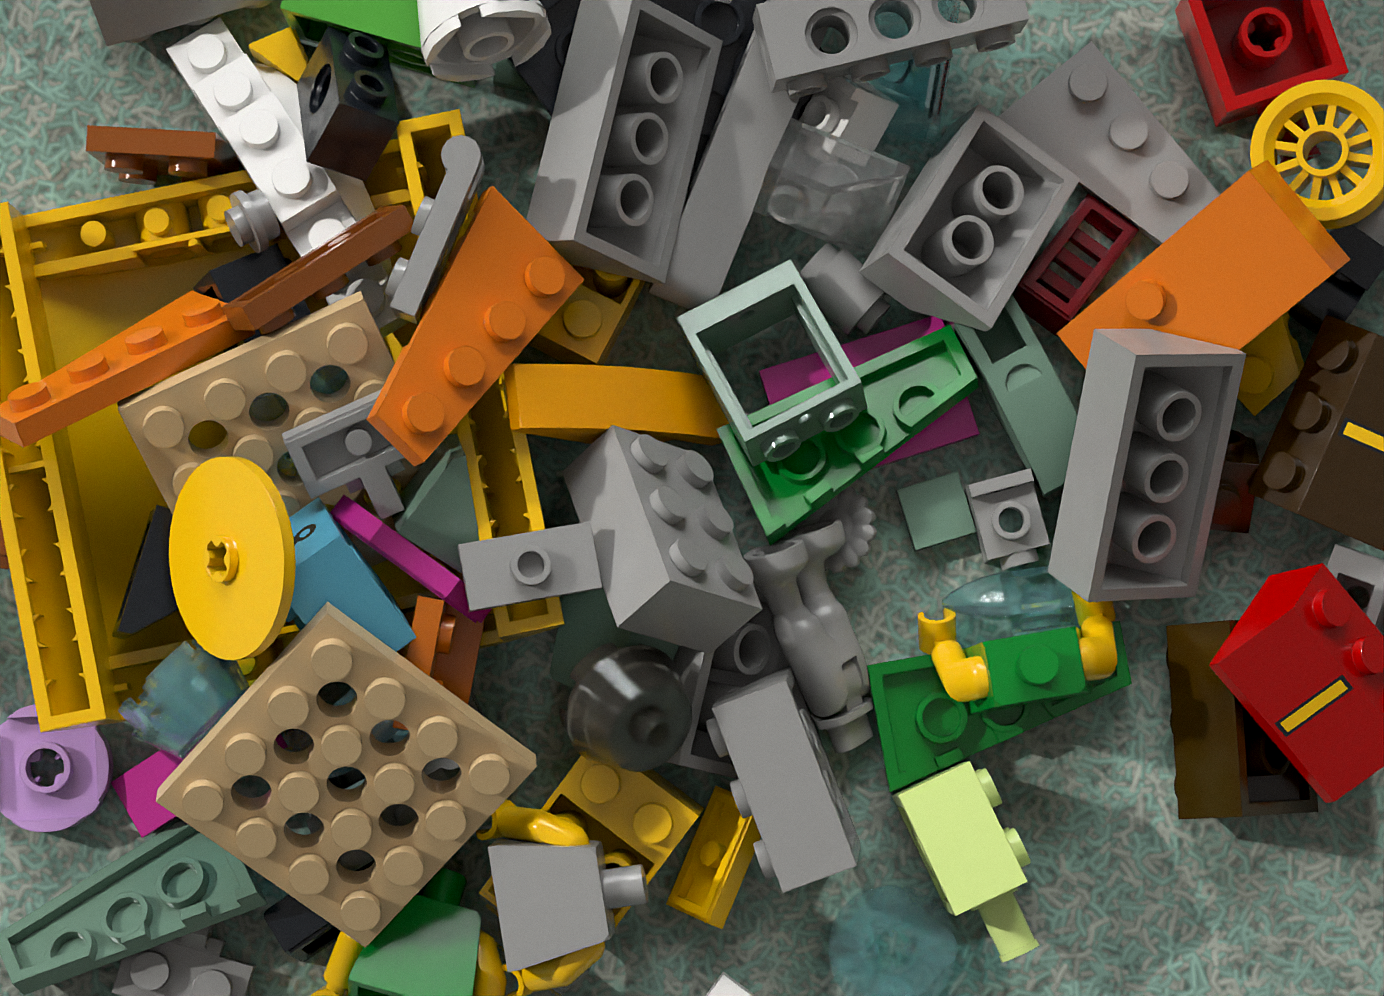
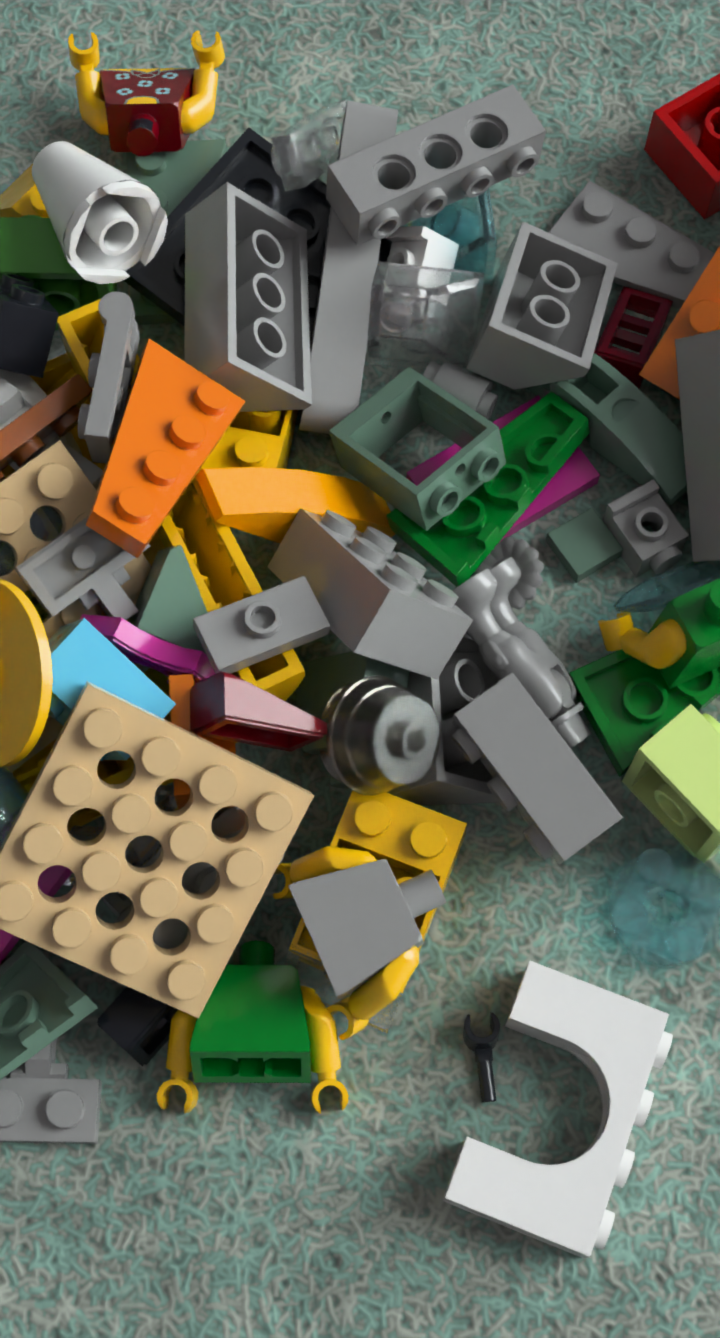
camera: 20 degrees left, 15 degrees down
(477, 654) = (246, 714): none -> dark red slope
(715, 861) = (492, 868): yellow plate -> none

